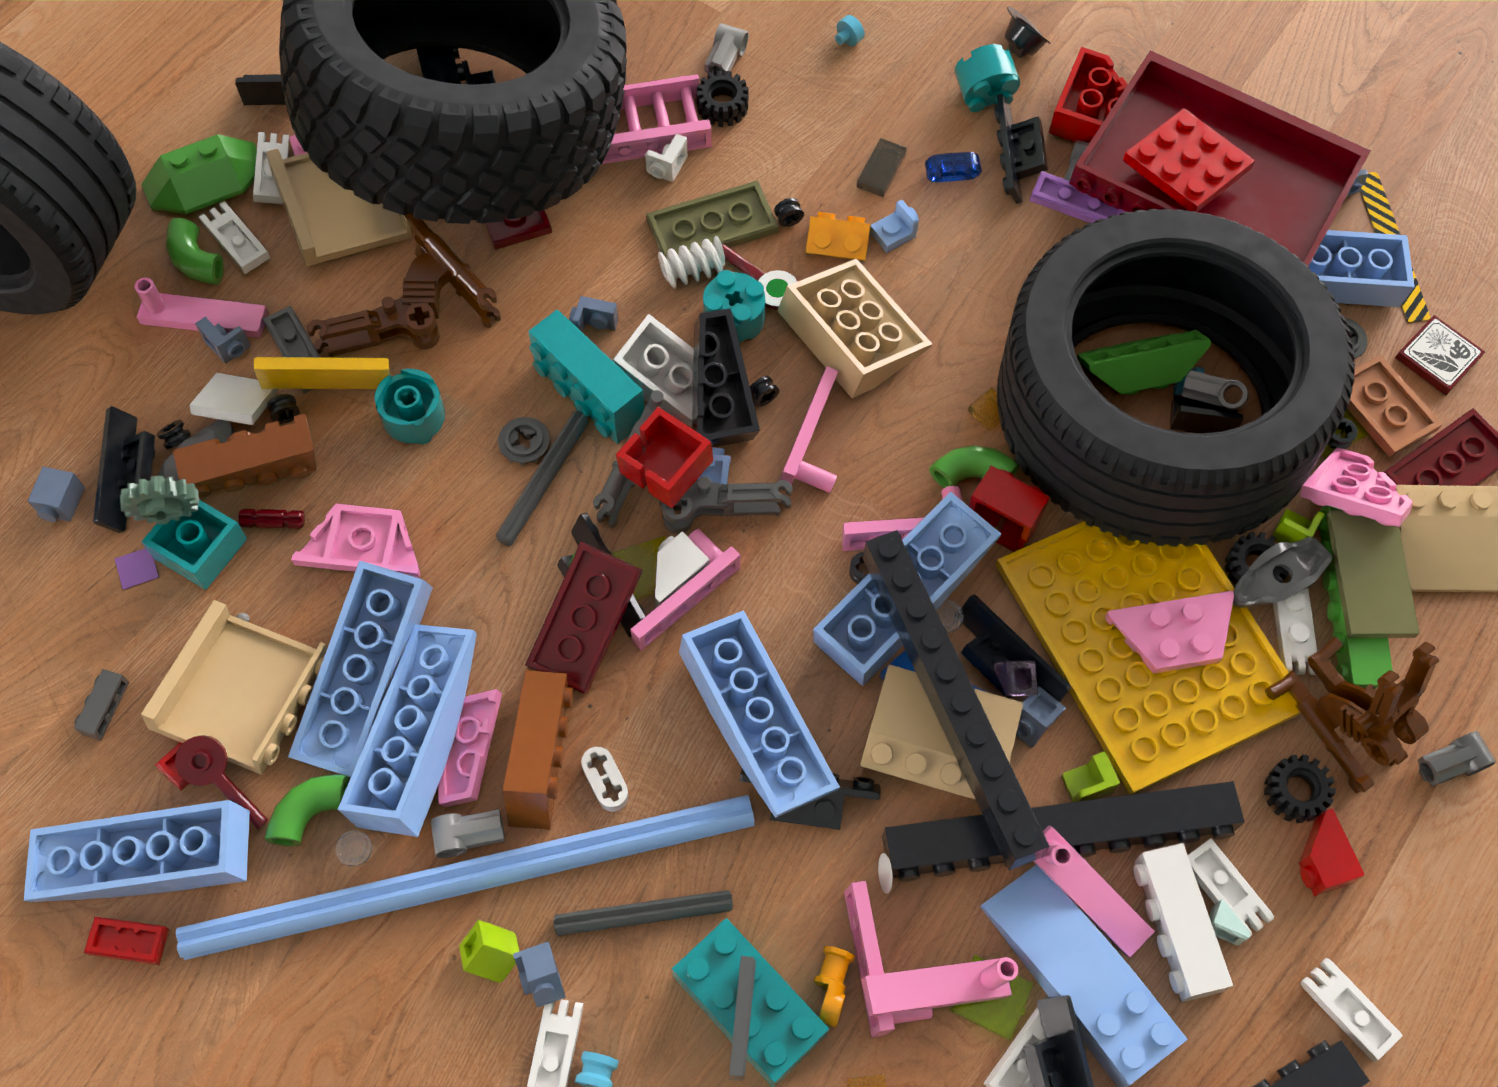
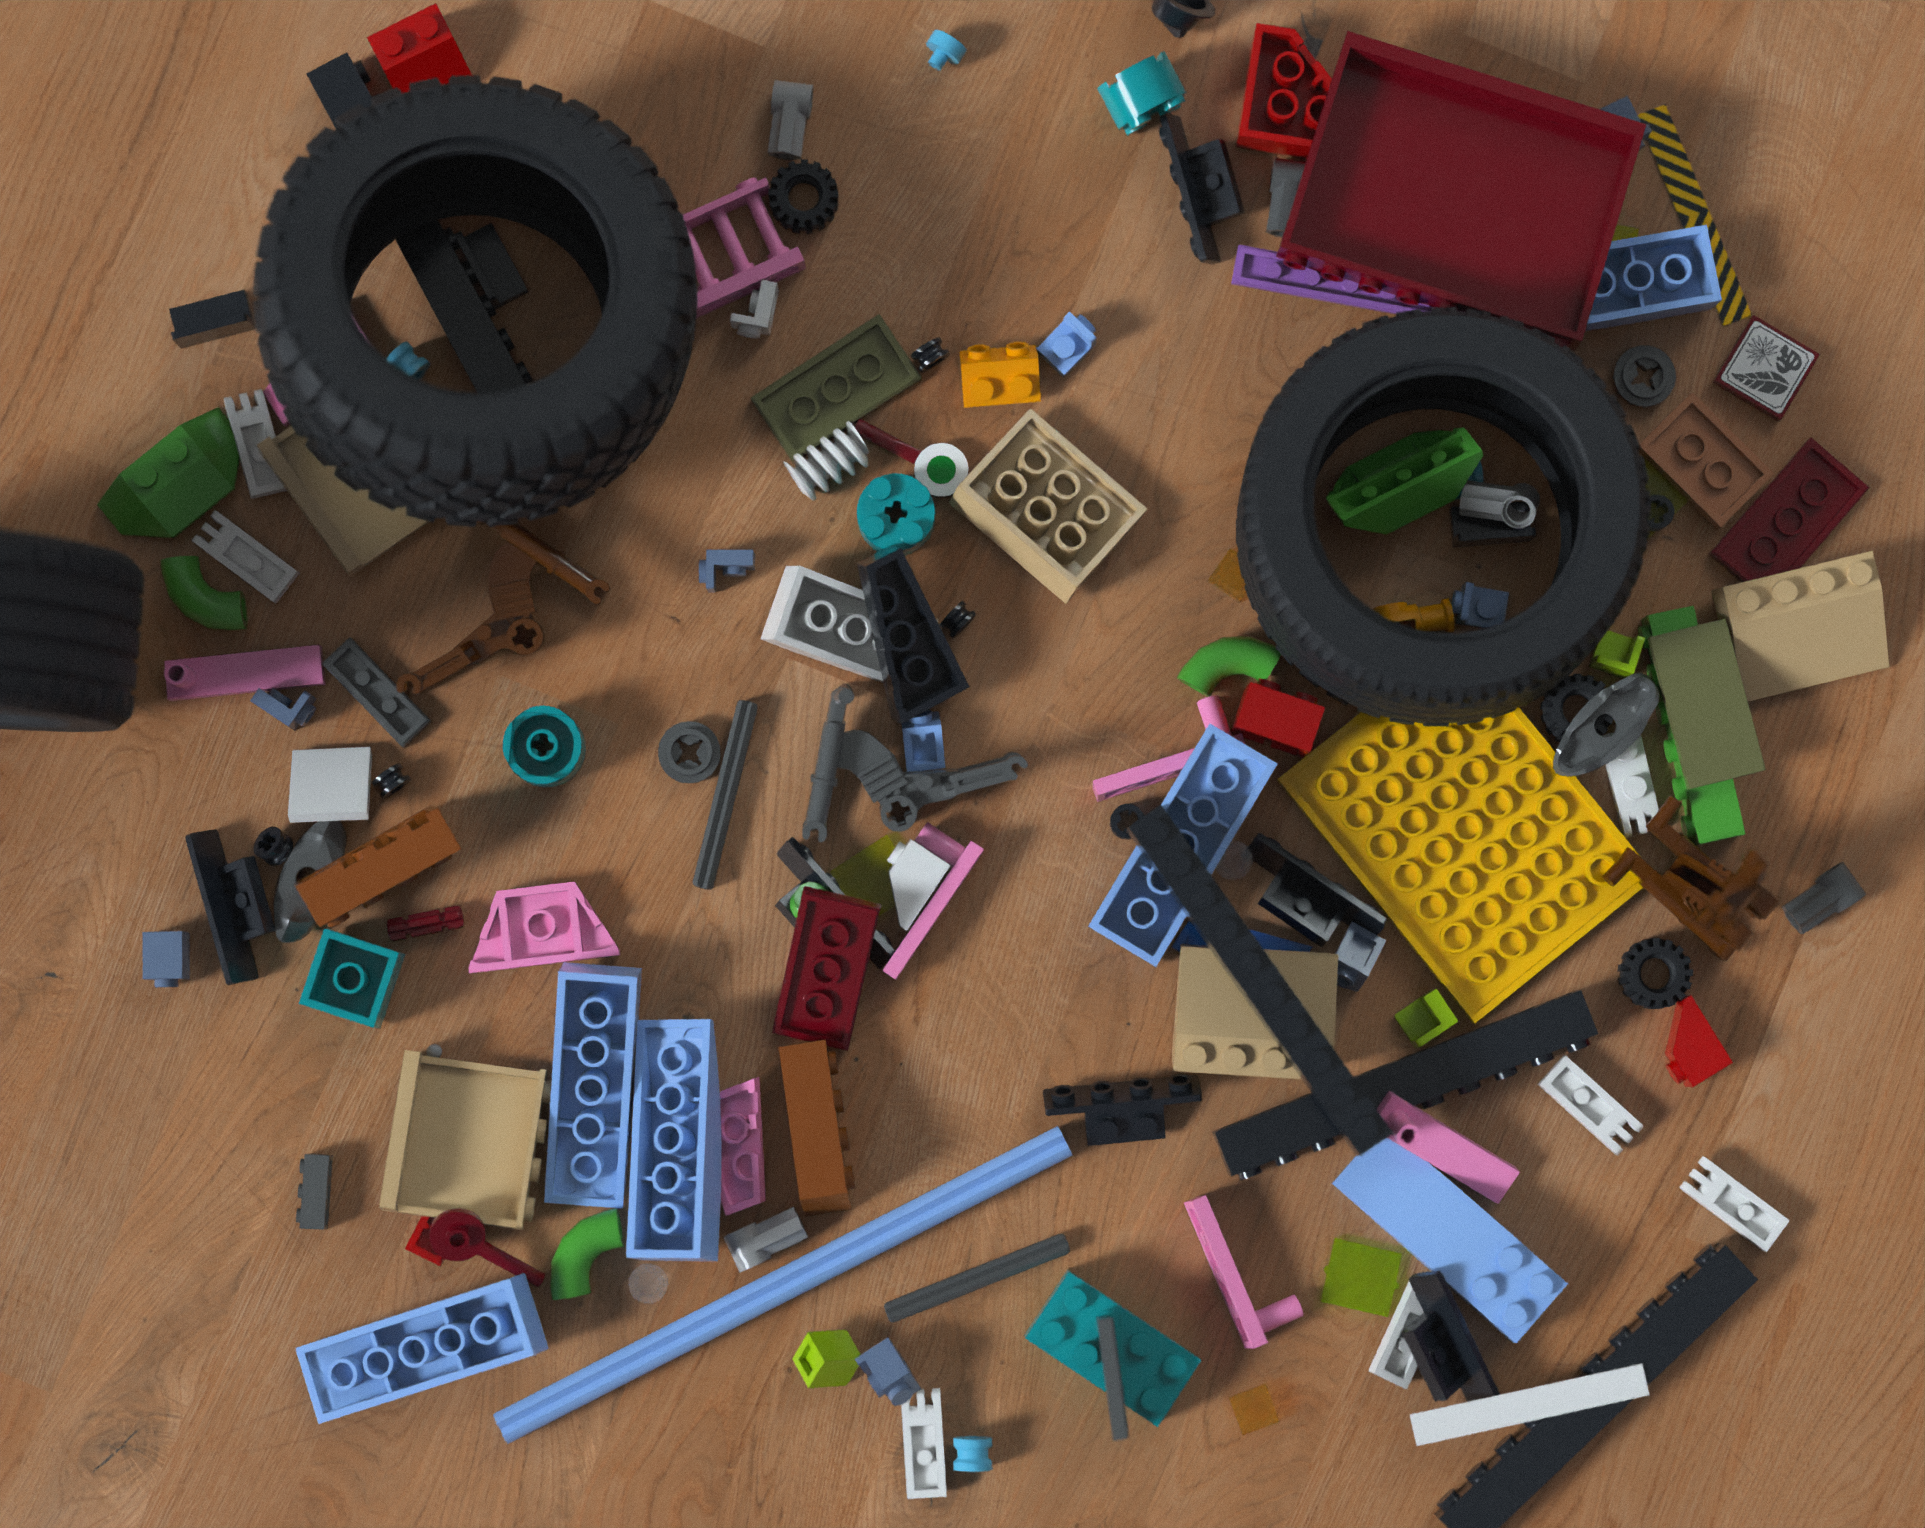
camera: 15 degrees left, 20 degrees up
(126, 940) = (443, 1438): red plate -> none
(136, 568) = (288, 1018): medium lavender sticker -> none
(159, 499) = (313, 962): sand green gear -> none
(320, 372) = (432, 735): yellow tile -> none
(586, 376) = (744, 659): teal brick -> none
(611, 775) = (904, 1135): white beam -> none
(672, 457) = (877, 771): red piece -> none
(756, 713) = (1048, 1039): light blue slope -> none
(795, 466) = (1017, 712): bright pink piece -> none
(832, 978) = (1192, 1299): light orange connector -> none
(881, 167) = (1032, 252): clear smoke tile -> none
(885, 873) = (1224, 1177): white sticker -> none
(938, 986) = (1303, 1288): bright pink piece -> none
(953, 167) = (1123, 235): clear blue beam -> none
(1017, 677) = (1326, 924): clear purple slope -> none
(1177, 631) = (1496, 823): bright pink wing -> none
(1182, 923) = (1547, 1154): white brick -> none
(1188, 161) = (1420, 205): plate -> none
(1227, 924) = (1591, 1145): light aqua slope -> none
(1353, 485) = (1679, 598): bright pink plate -> none

